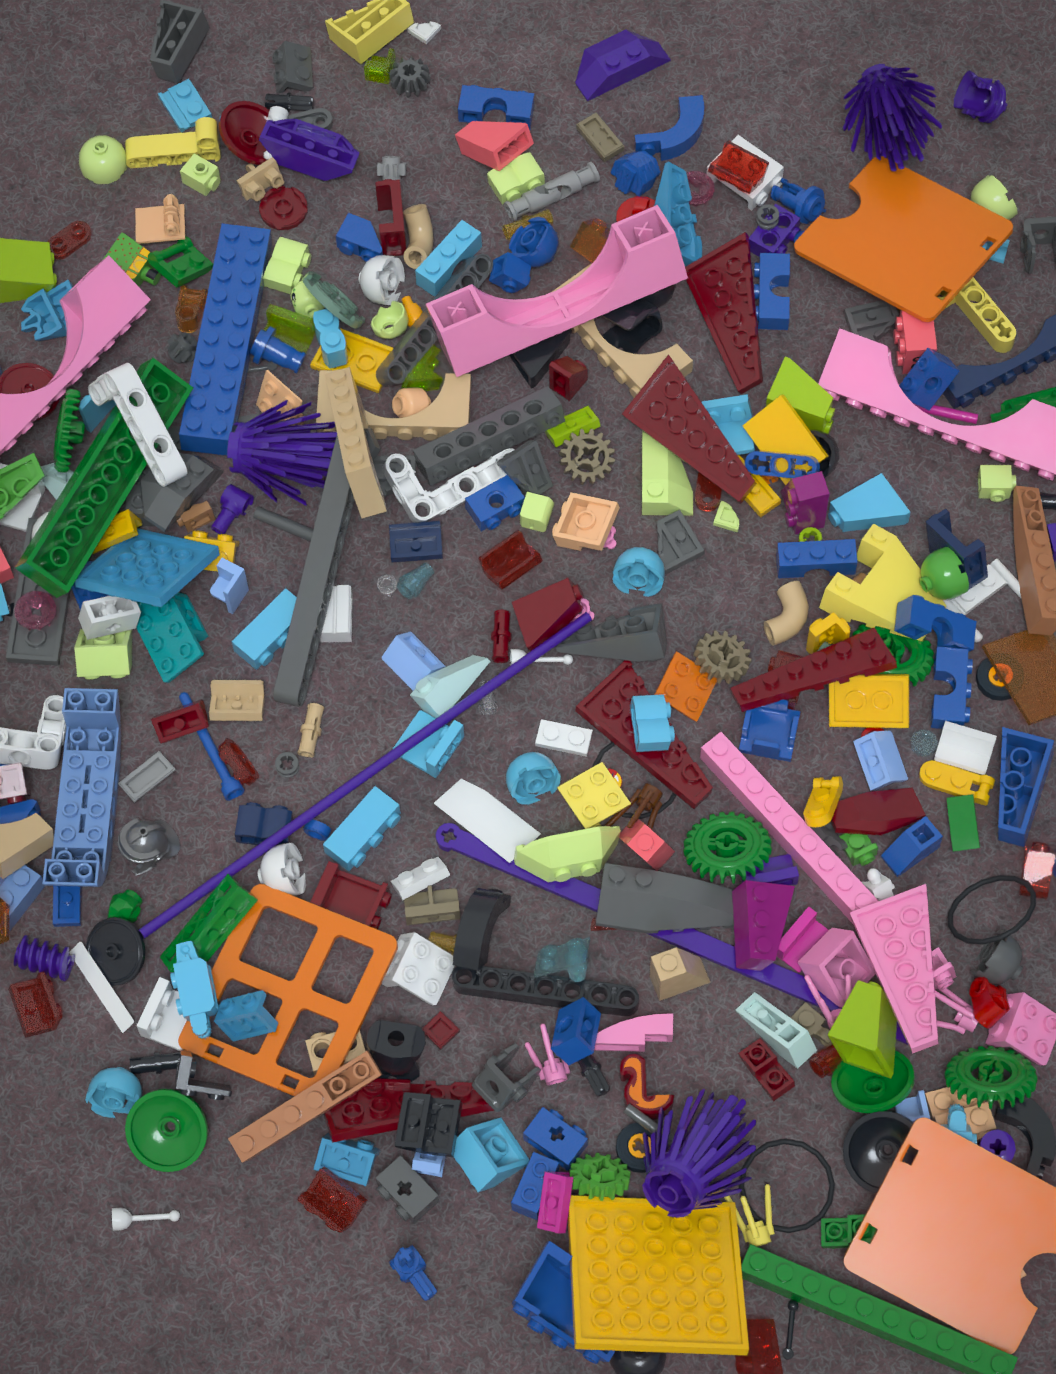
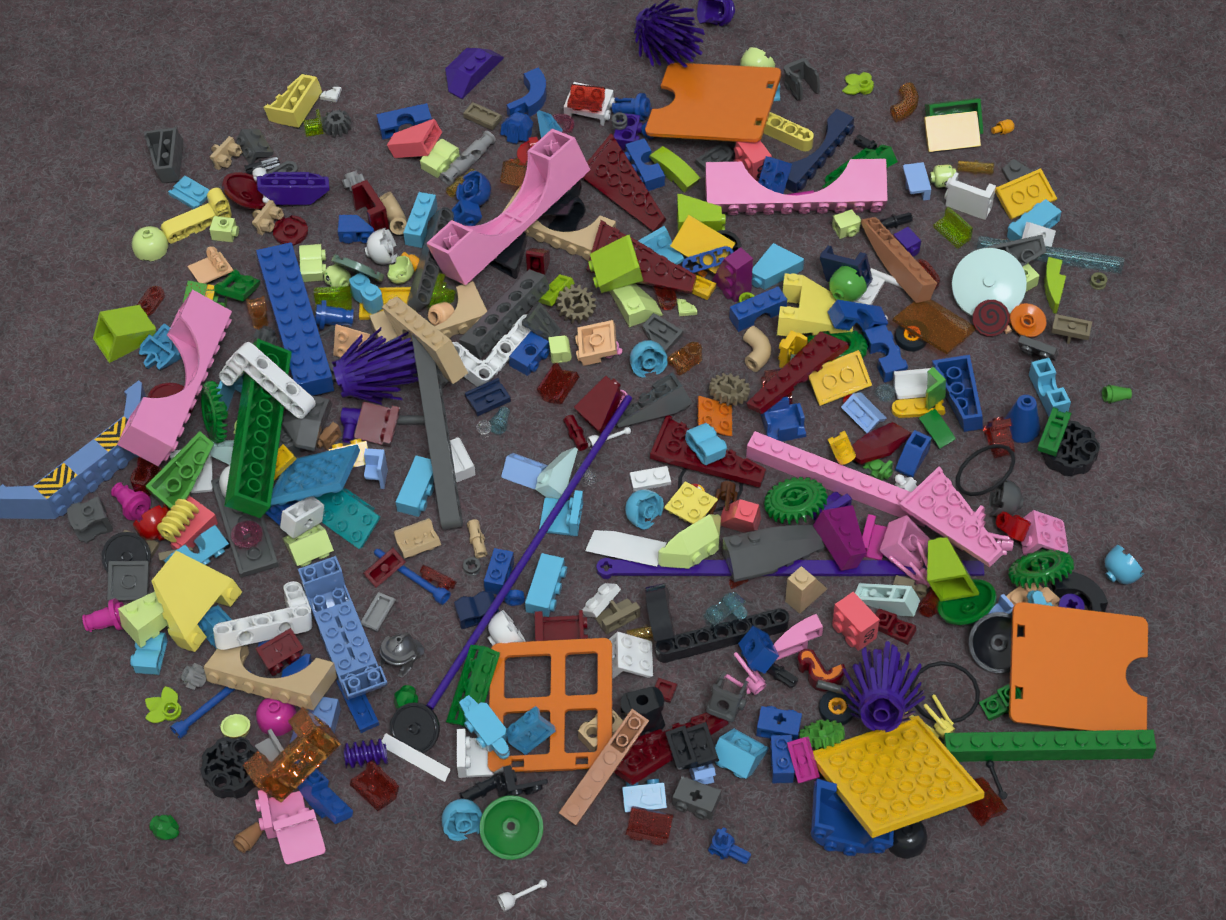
camera: 25 degrees left, 10 degrees down
(250, 65) = (222, 154): none -> tan hips
(260, 524) = (377, 424): none -> bracket
(314, 785) = (498, 570): none -> blue brick
(656, 427) = (615, 265): none -> lime slope
(688, 590) = (684, 360): none -> clear orange piece
(716, 1044) = (855, 621): none -> coral brick
(809, 312) = (675, 168): none -> lime slope
(983, 775) = (935, 388): none -> bright green panel

